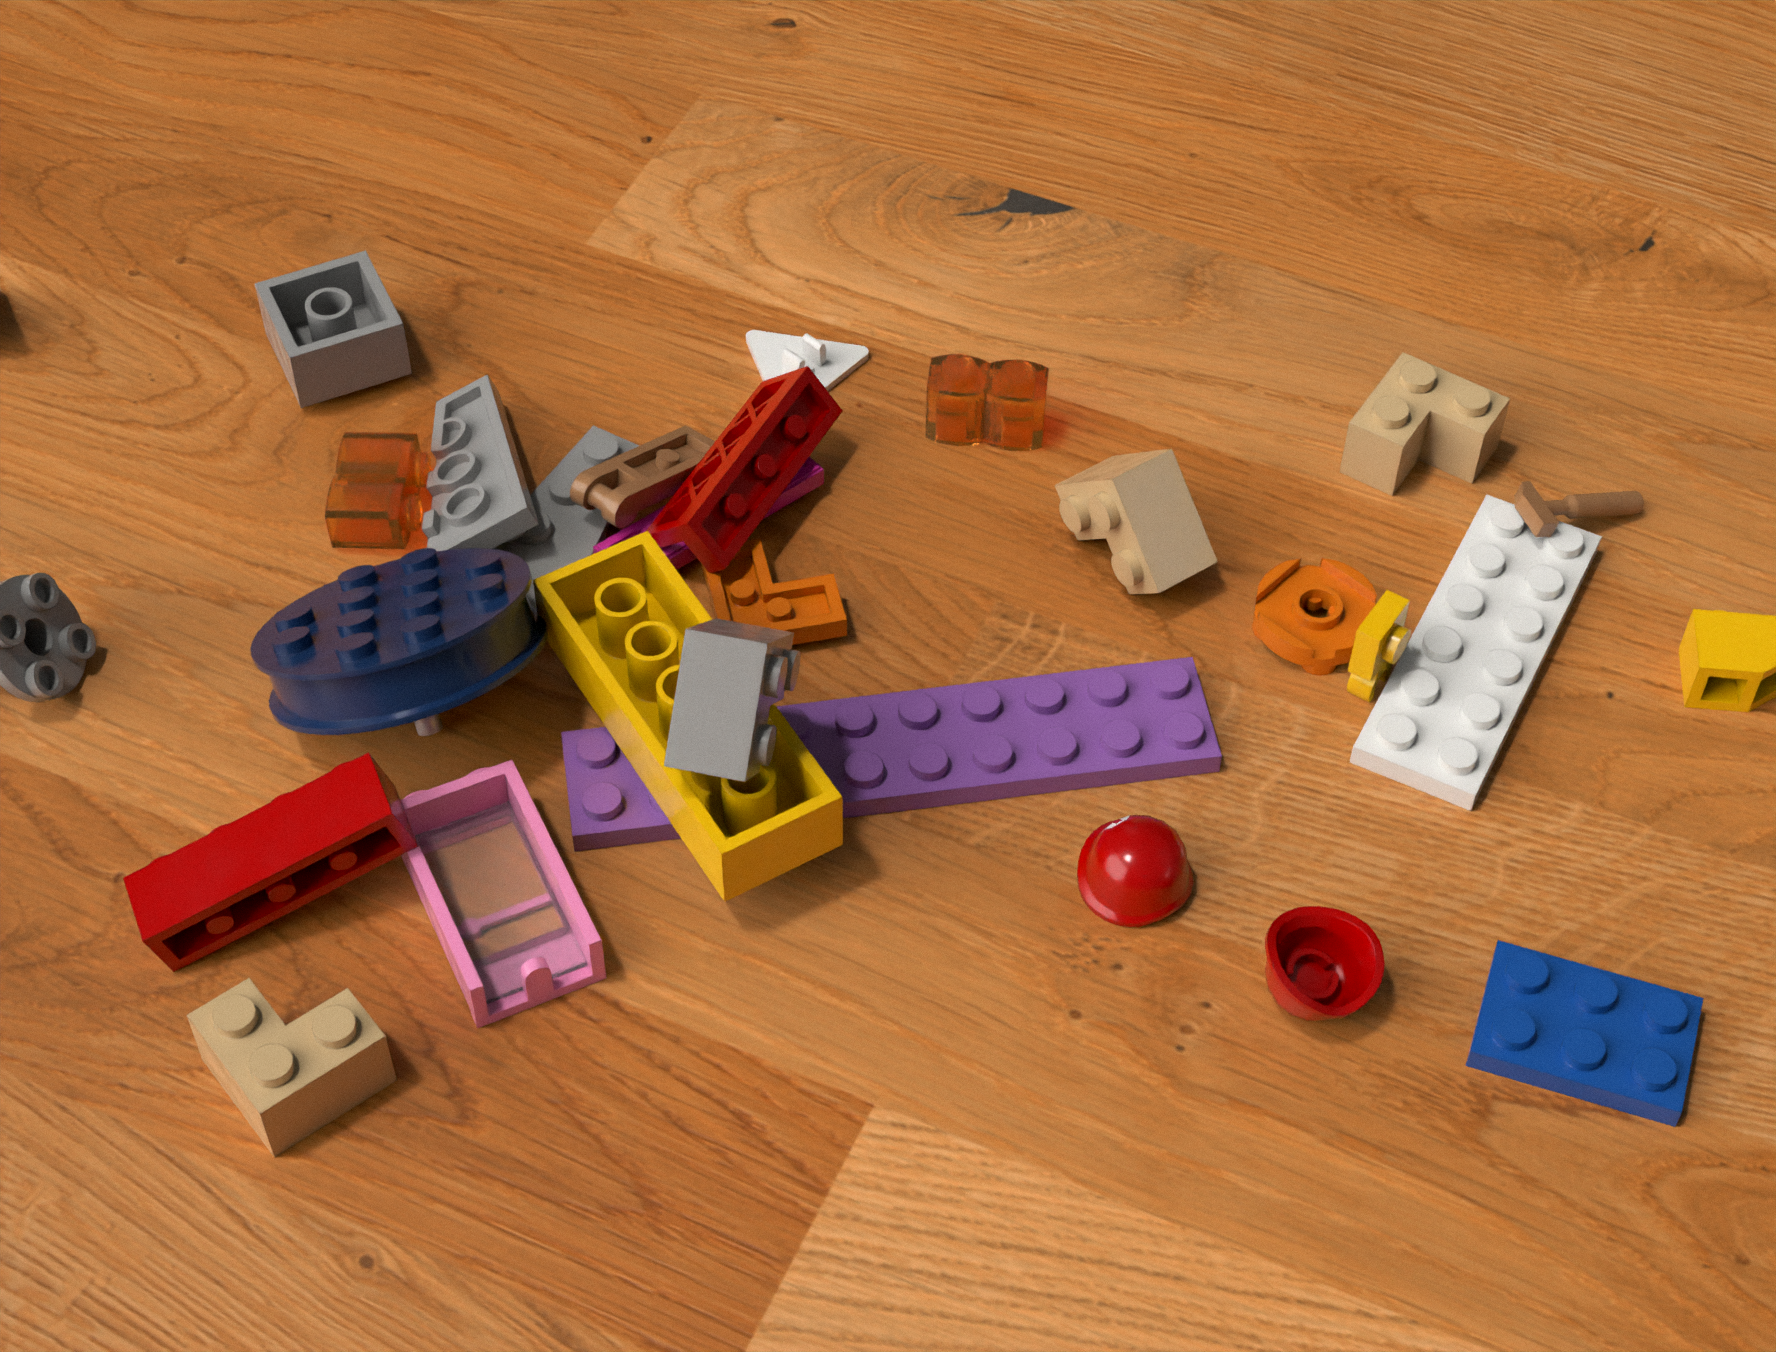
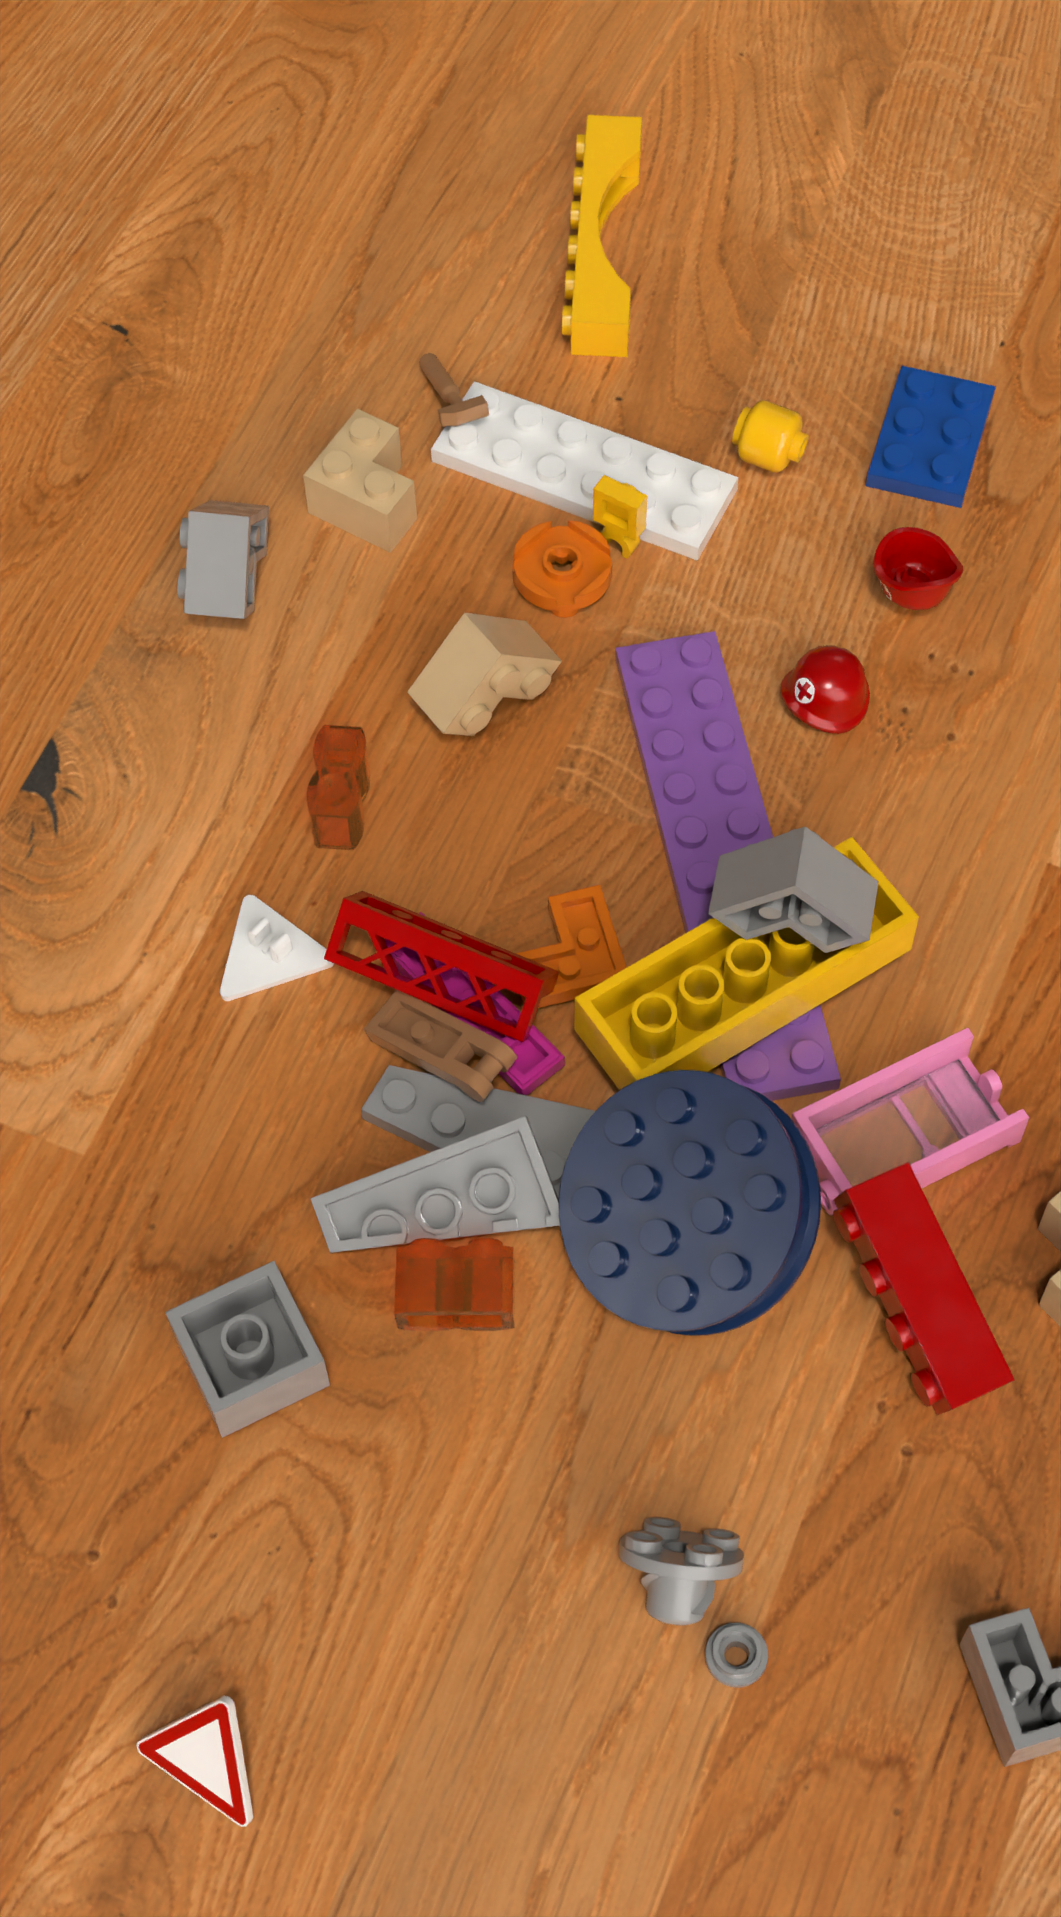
camera: 90 degrees left, 10 degrees up
(1295, 291) = (222, 558): none -> light grey brick
(1542, 821) = (769, 436): none -> yellow head

